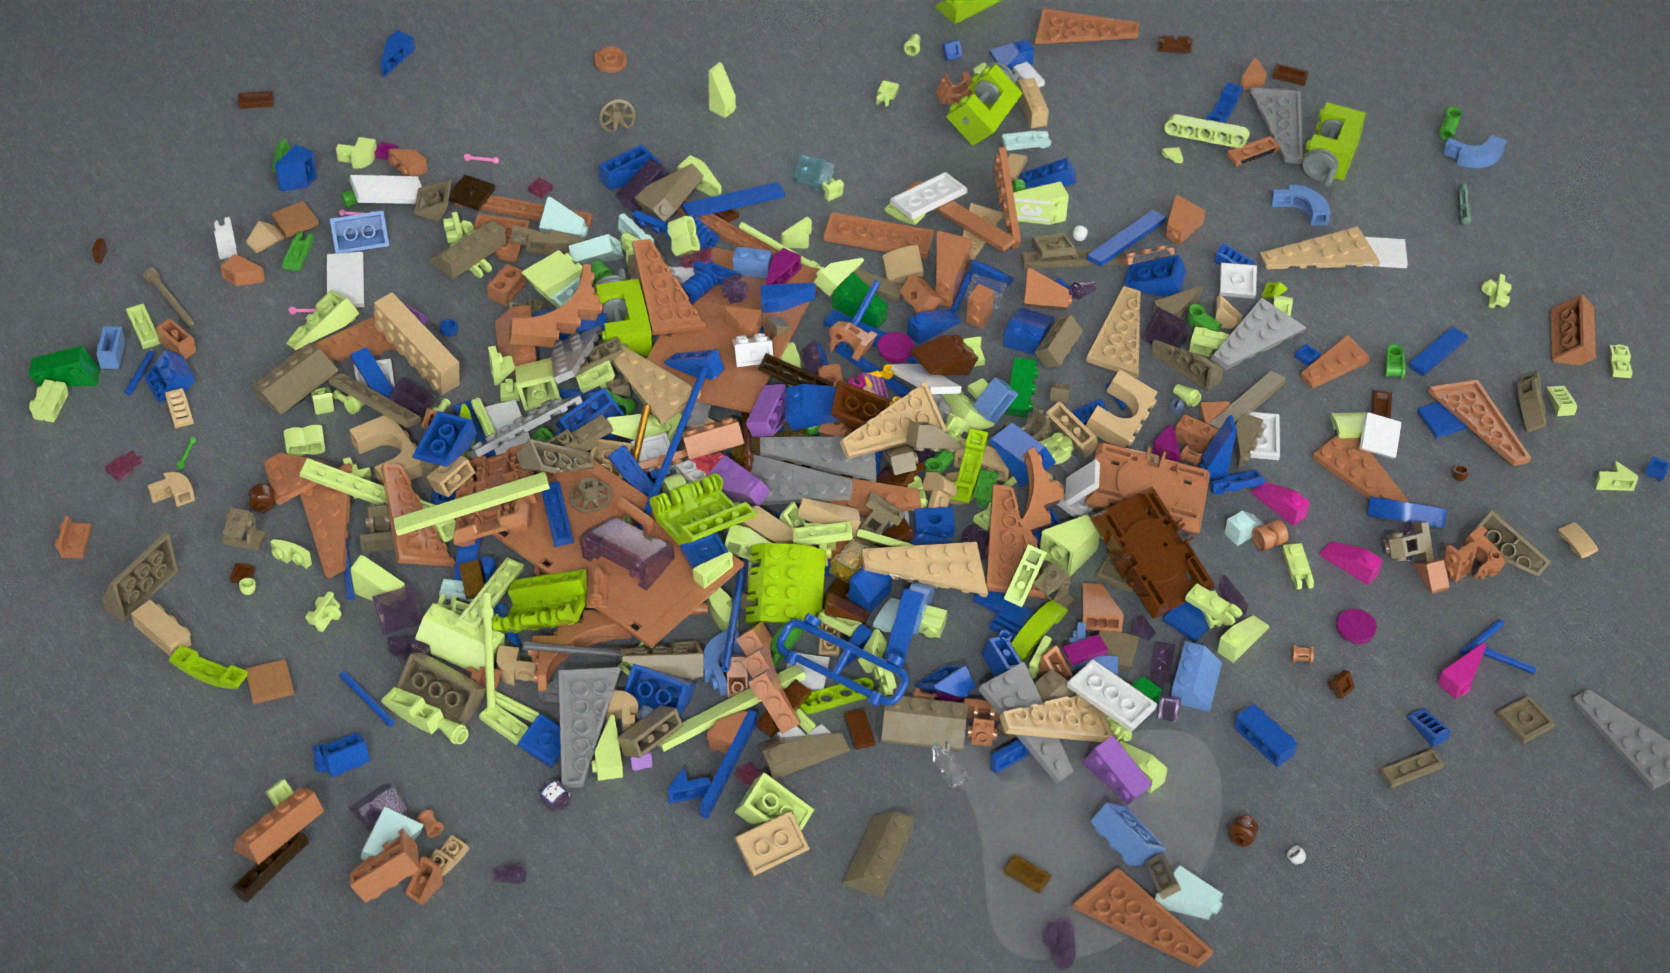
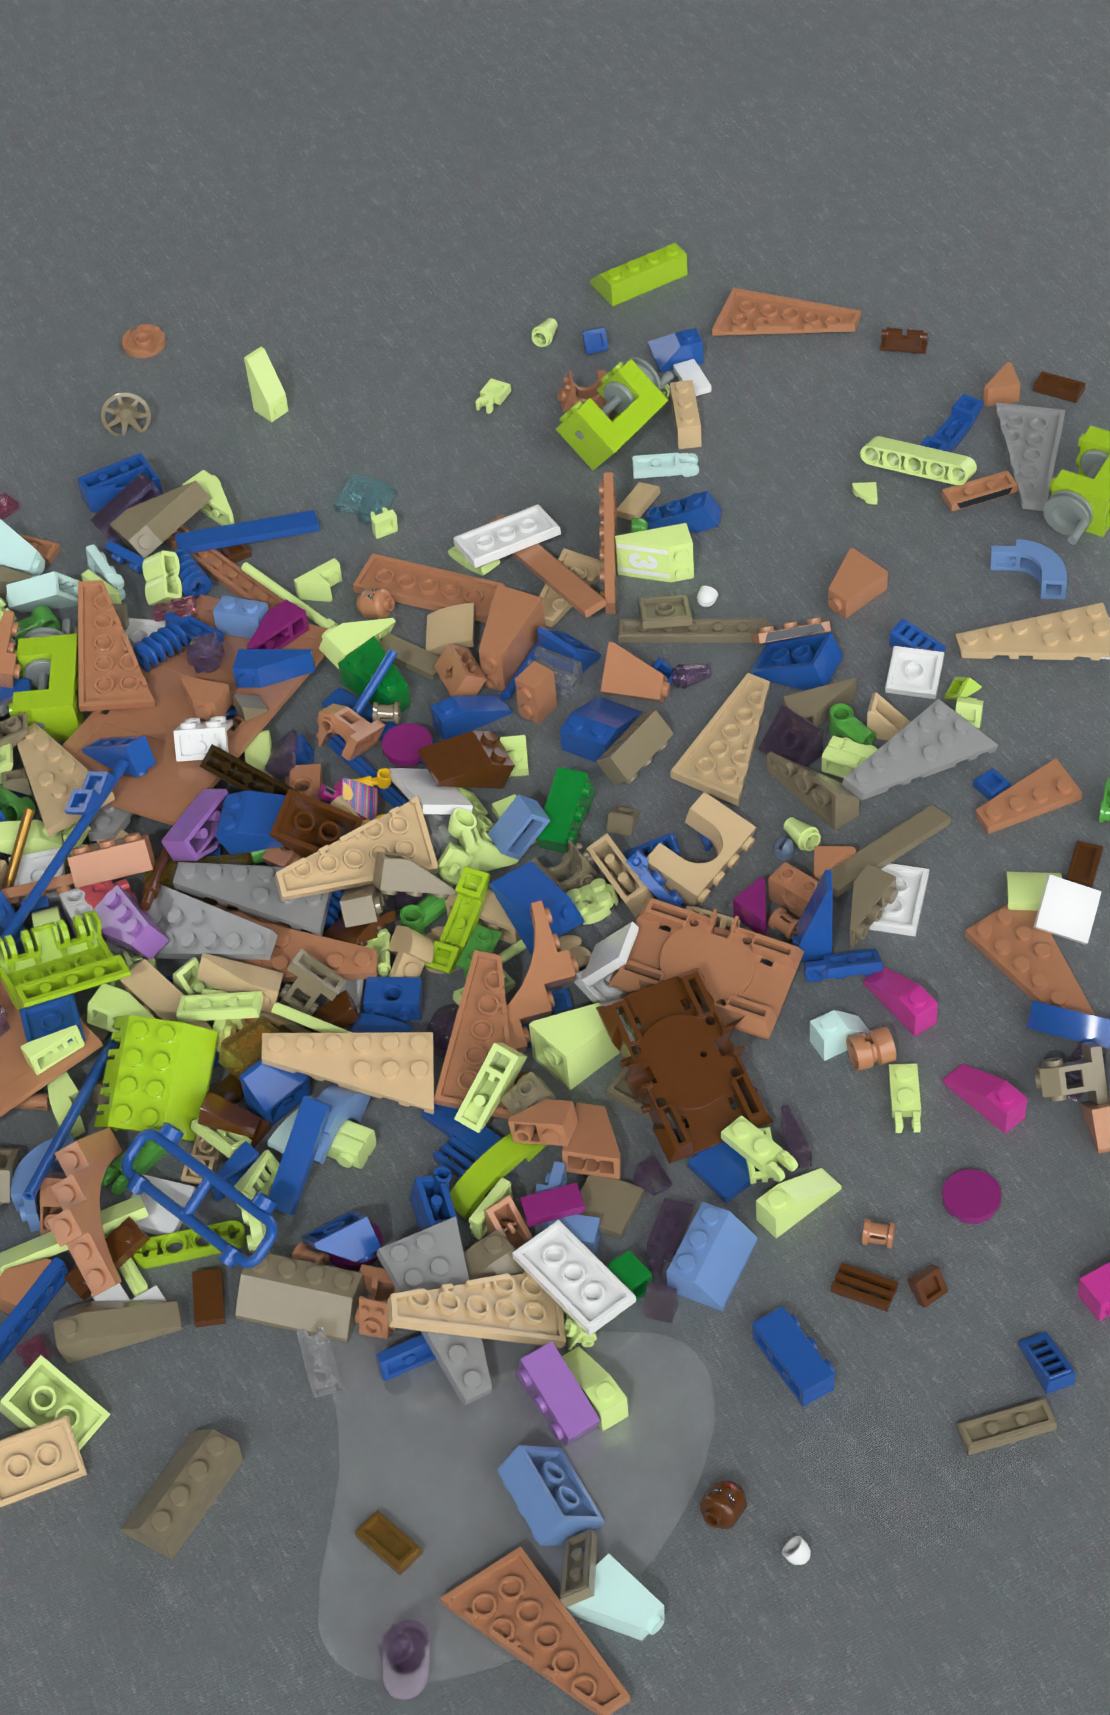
camera: 15 degrees right, 0 degrees up
(688, 391) = (91, 794): none -> blue slope
(843, 248) = (375, 603): none -> nougat head
(876, 325) = (387, 713): none -> dark tan bush
(956, 400) = (461, 825): none -> yellowish green bar
(1068, 597) = (545, 1123): none -> nougat slope
(1089, 421) = (653, 880): none -> blue hinge
(1126, 238) = (768, 606): tile -> none
(1300, 686) = (867, 1283): none -> reddish brown tile

